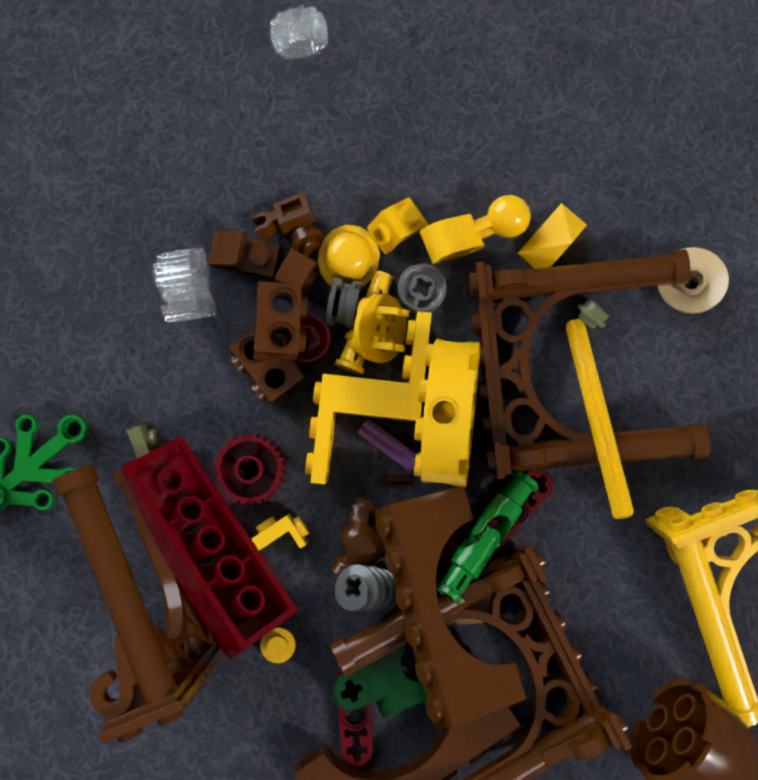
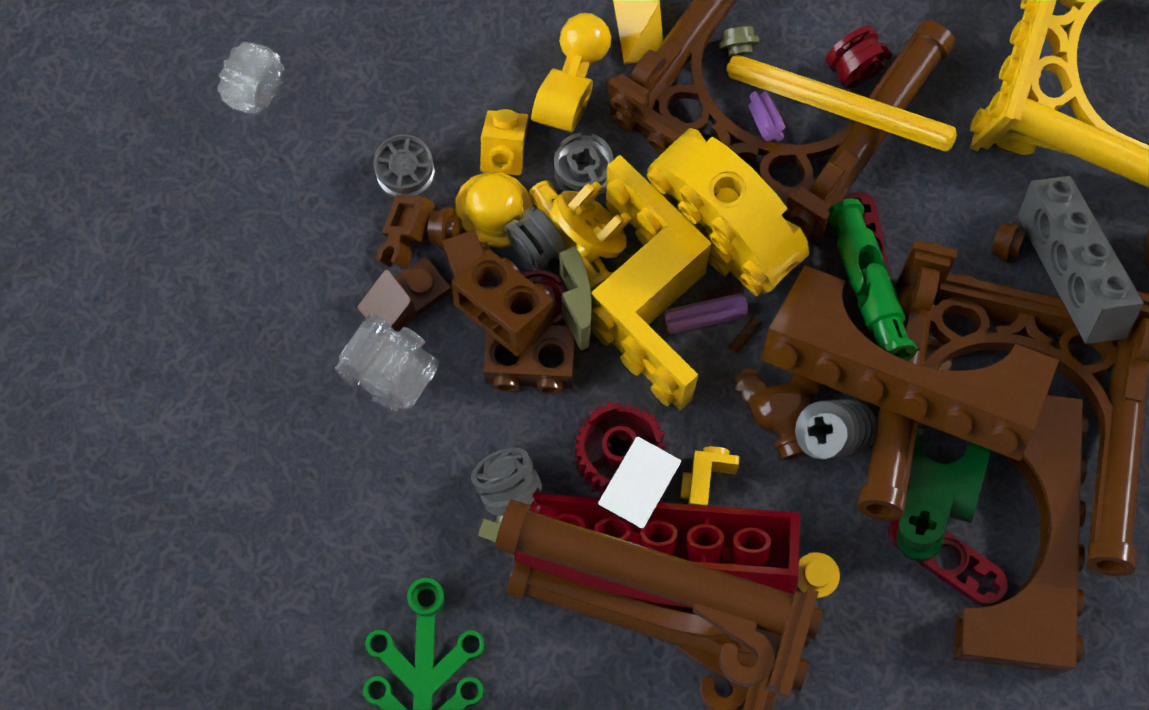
camera: 45 degrees left, 15 degrees down
(175, 417) = (505, 477): none -> dark grey wheel
(233, 501) = (639, 482): none -> white sticker
(313, 369) = (577, 300): none -> olive slope
(325, 180) = (404, 167): none -> flat silver wheel
(551, 376) = (766, 116): none -> medium lavender axle
(596, 595) = (1008, 241): none -> reddish brown plate
(614, 656) = (1079, 260): none -> dark grey brick
(648, 405) = (857, 56): none -> dark red wheel

